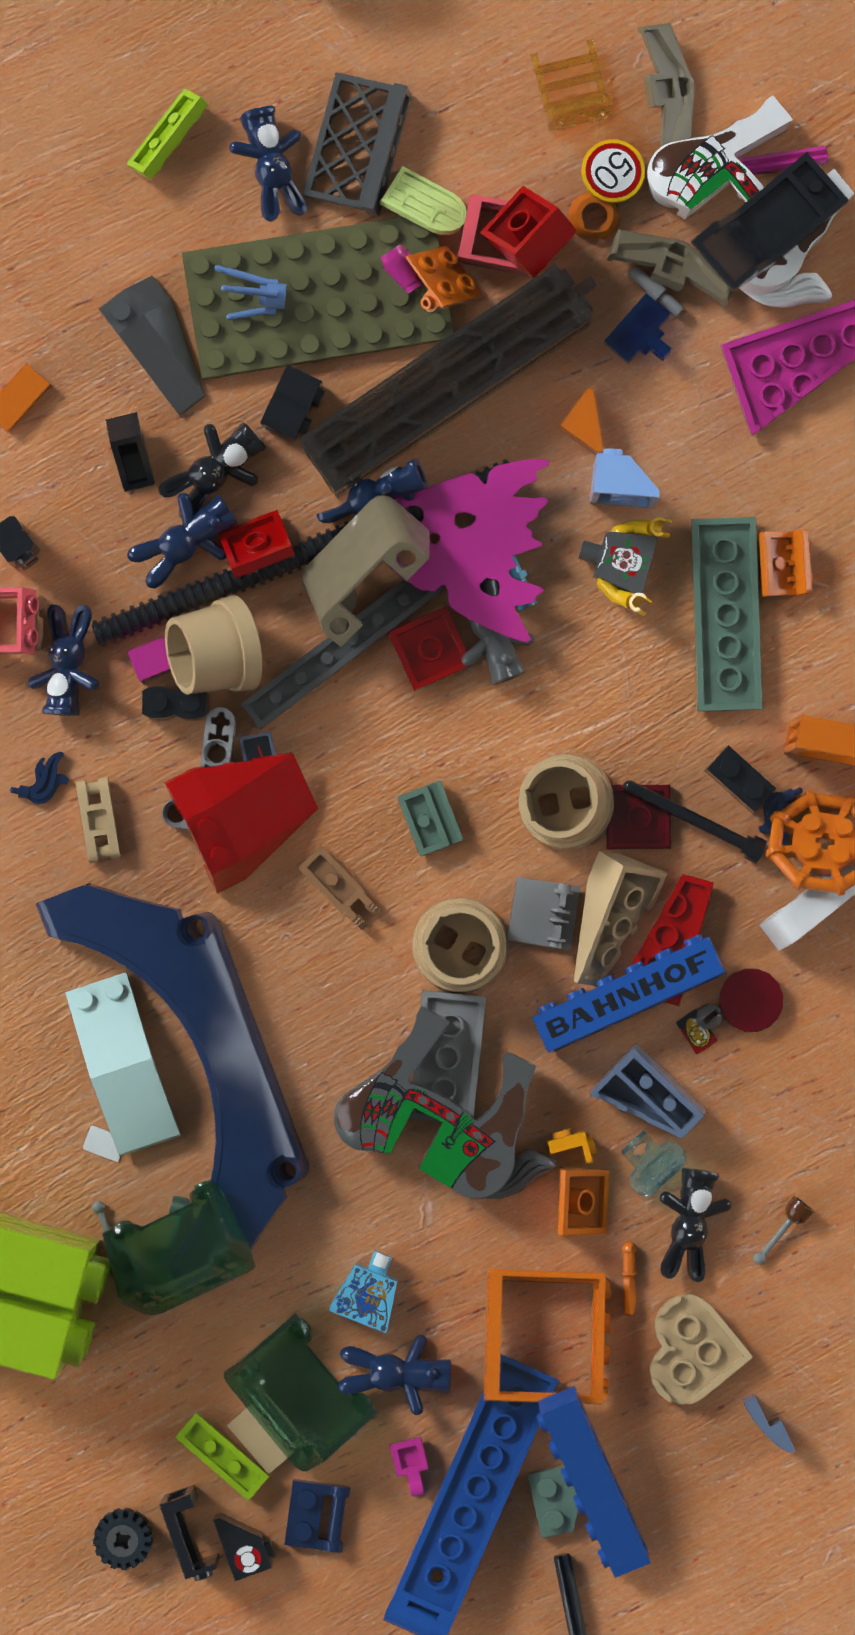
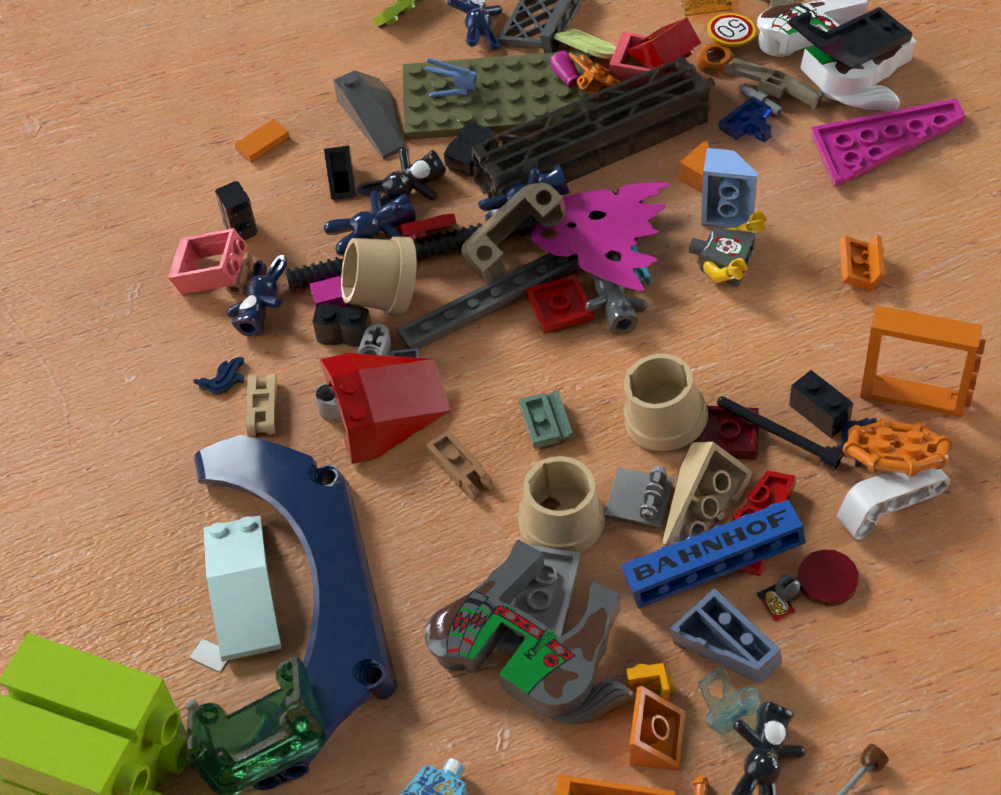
camera: 10 degrees right, 35 degrees down
(726, 614) = (811, 296): sand green plate -> none

